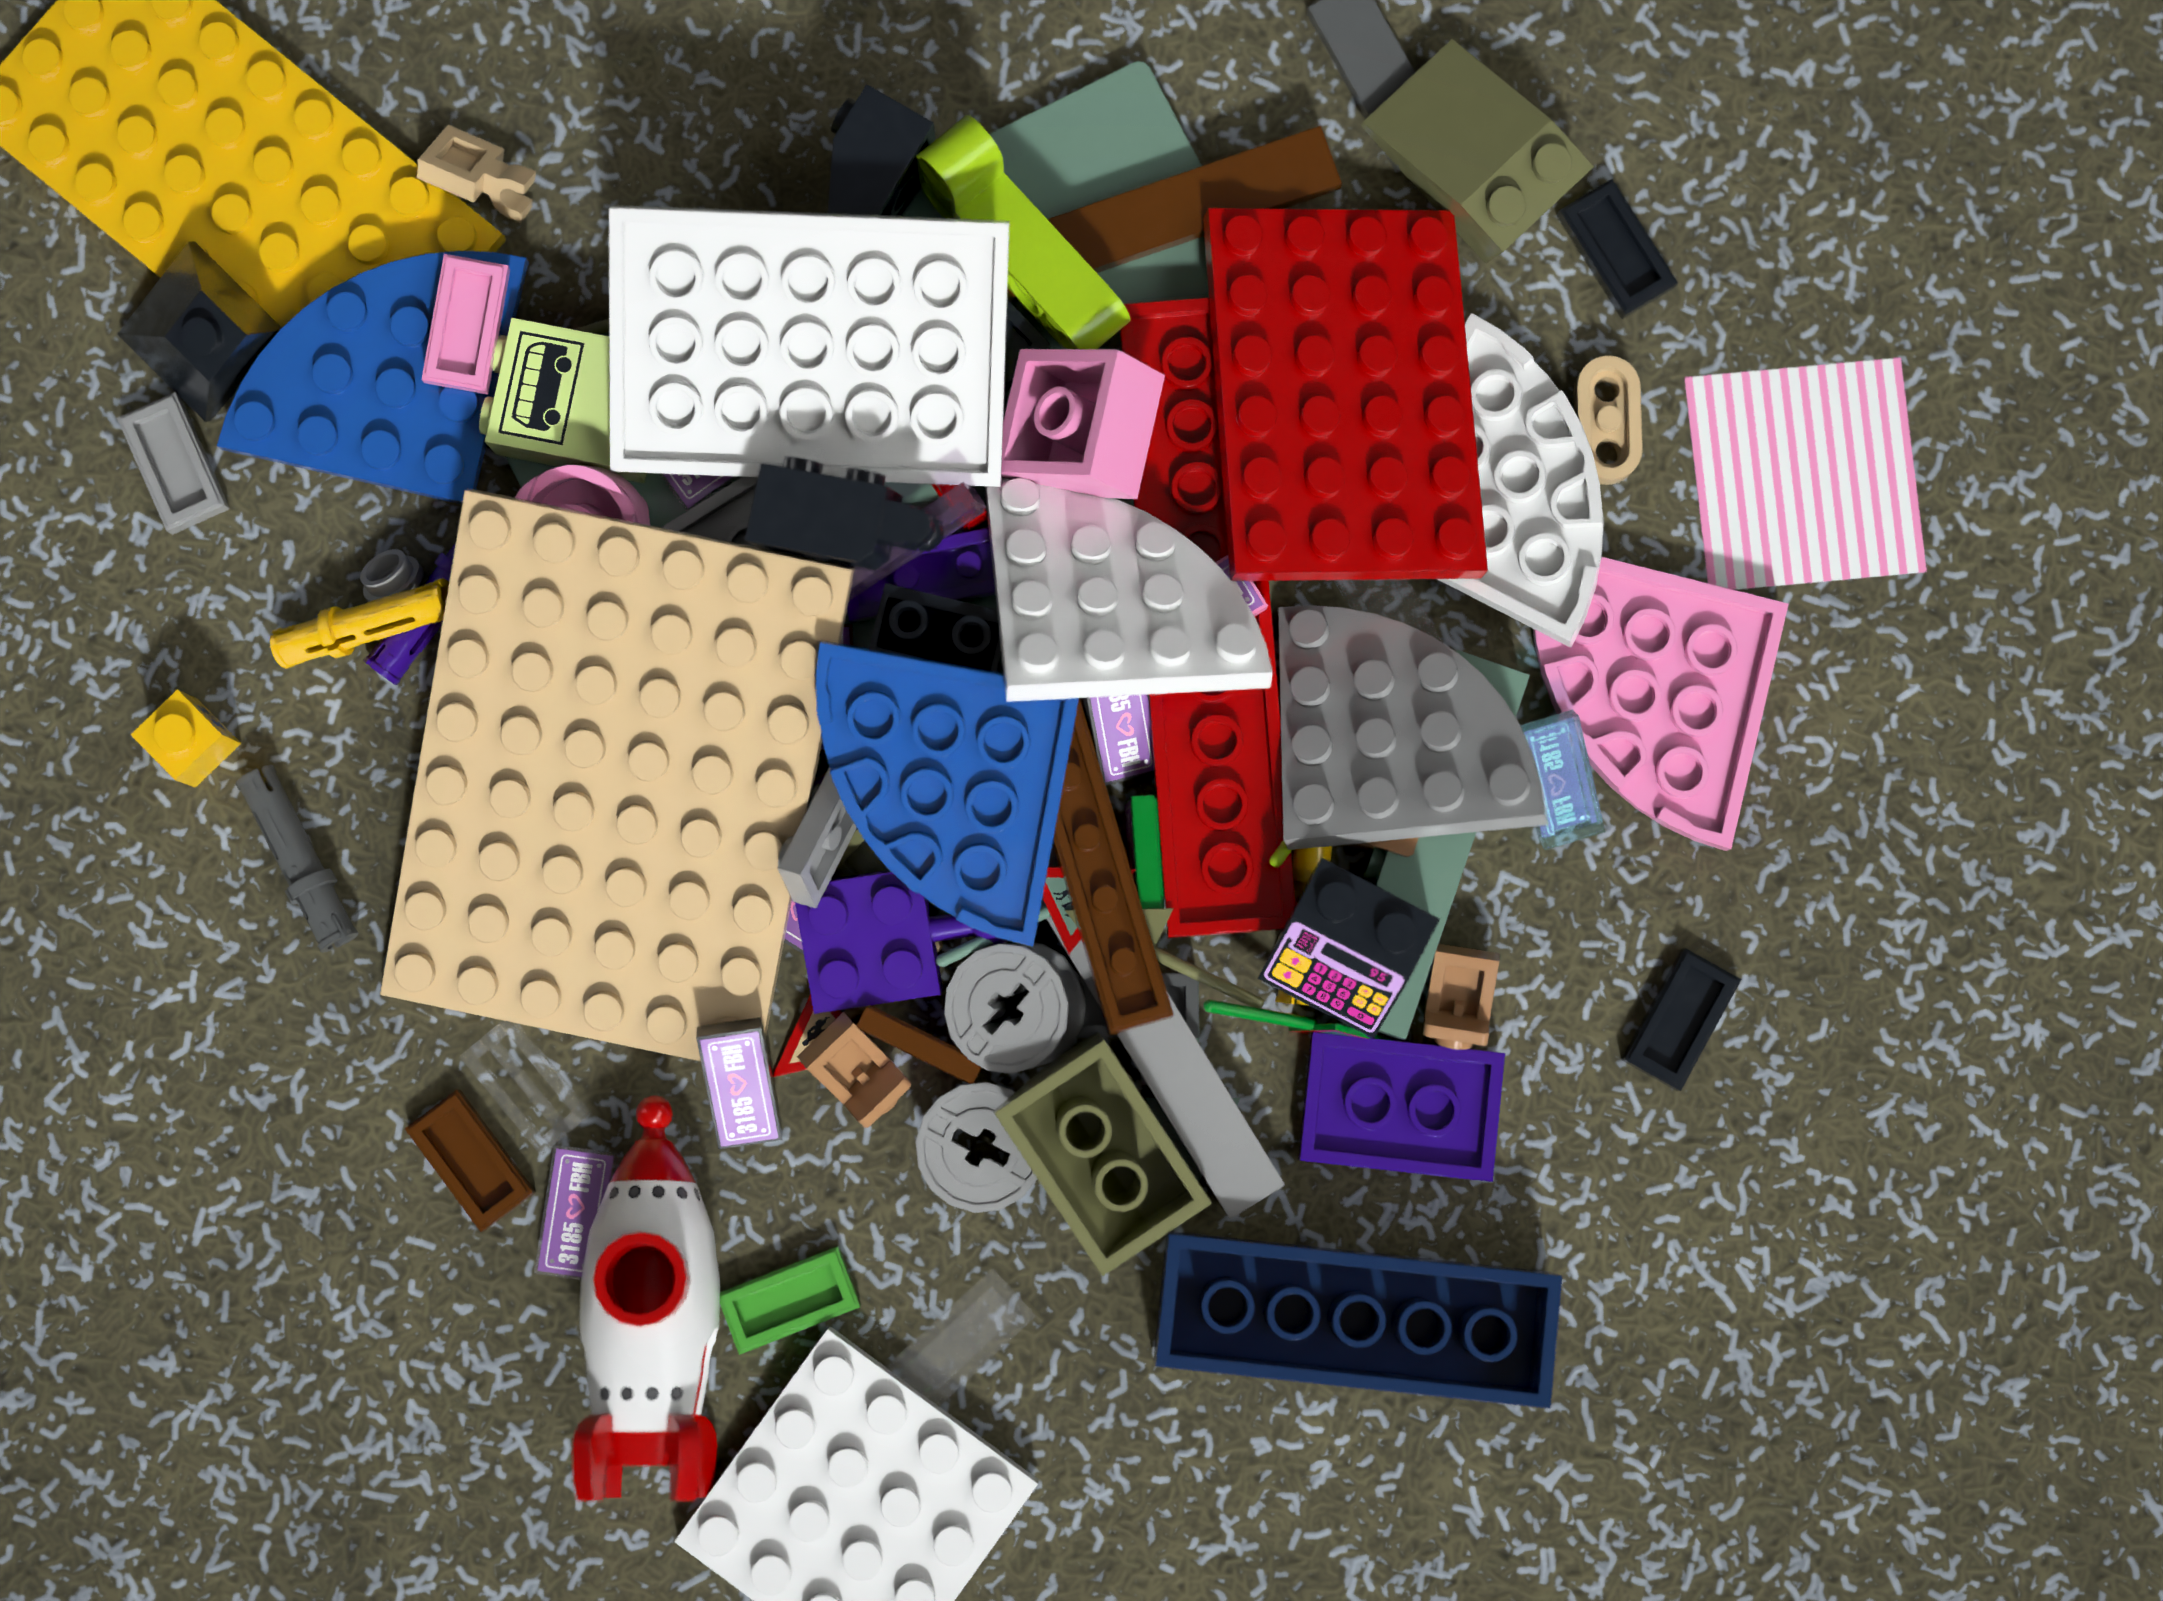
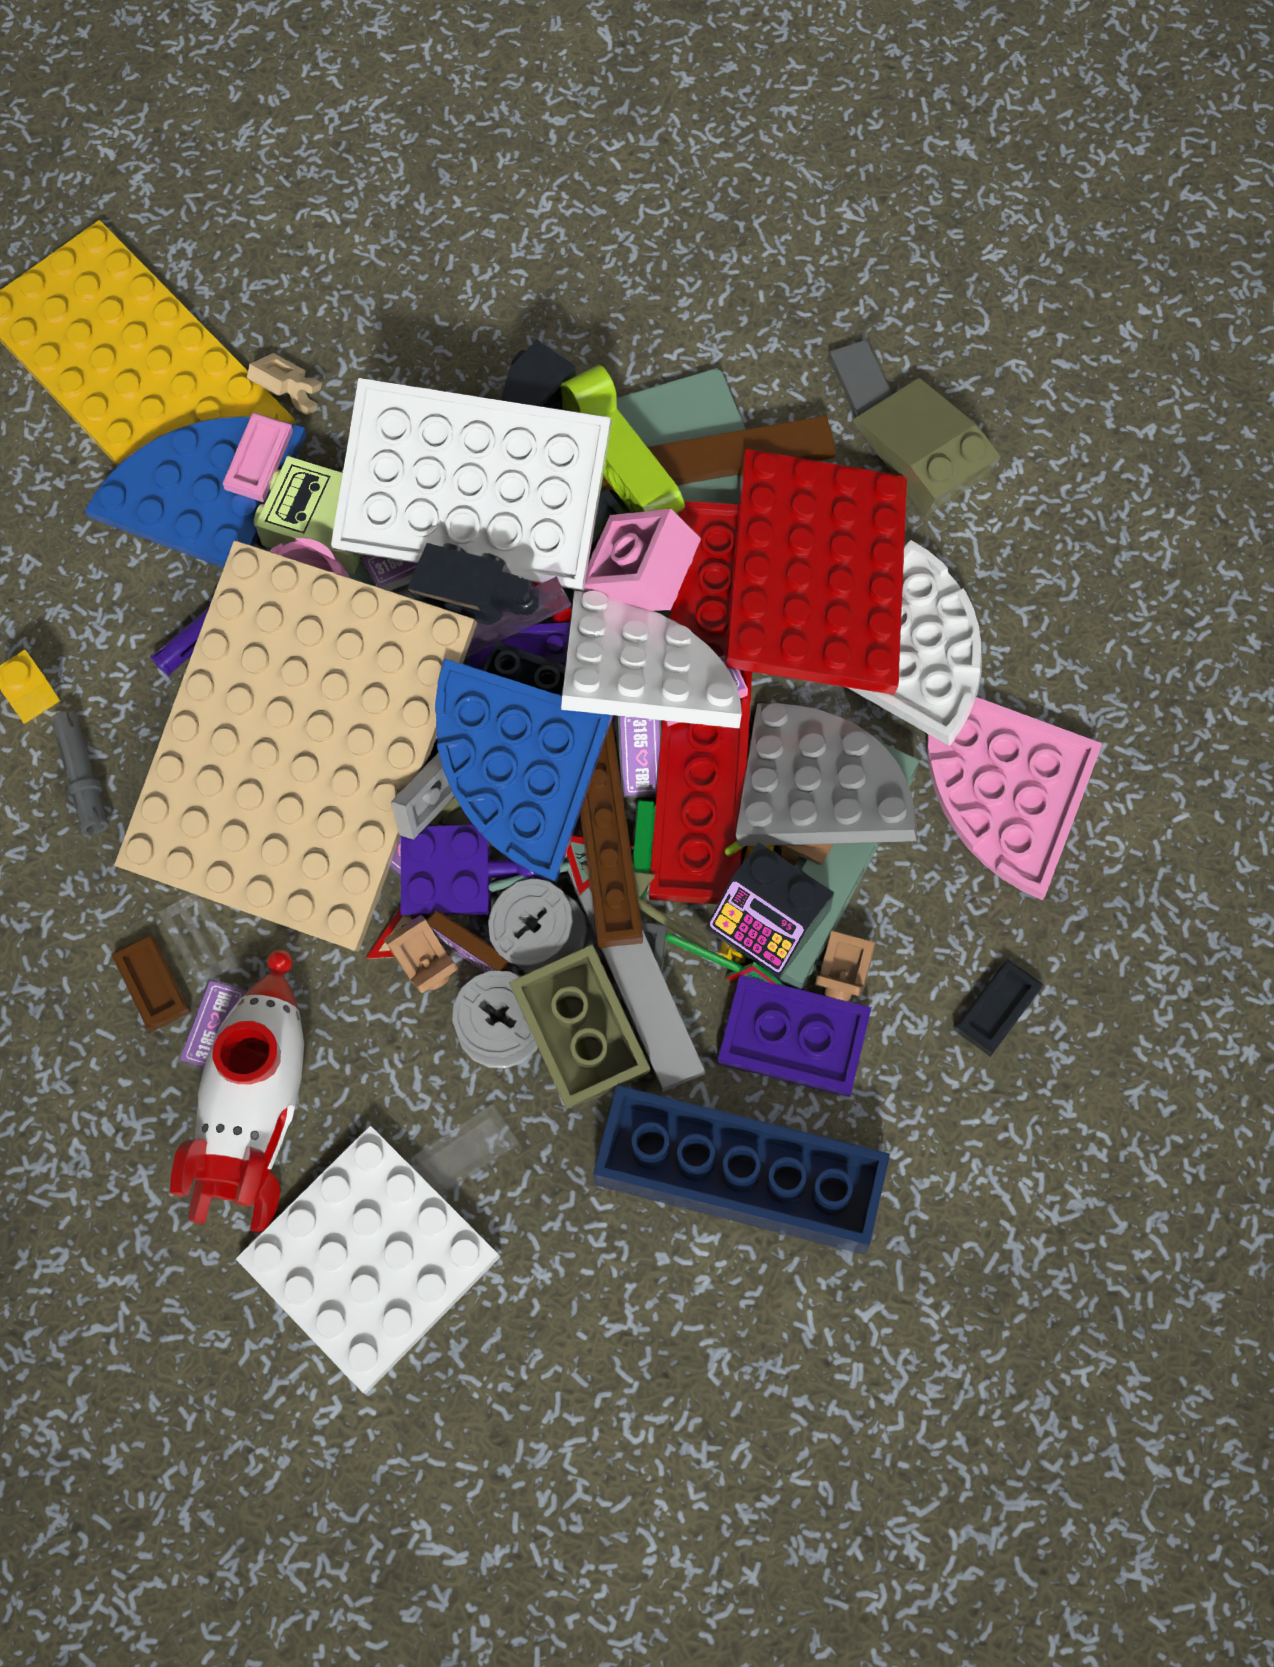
camera: 15 degrees right, 15 degrees down
(173, 463) = (56, 527): light grey tile -> none
(199, 331) = (89, 447): black slope -> none
(340, 631) = (138, 634): yellow pin -> none
(390, 574) = (179, 610): light grey plate -> none
(739, 1083) = (341, 952): tile -> none
(789, 1300) = (348, 1107): bright green tile -> none
(1565, 778) = (935, 850): clear light blue tile -> none
(1613, 421) = (996, 619): tan plate -> none
(1617, 249) = (1012, 517): black tile -> none
(1805, 474) = (1124, 671): sticker -> none

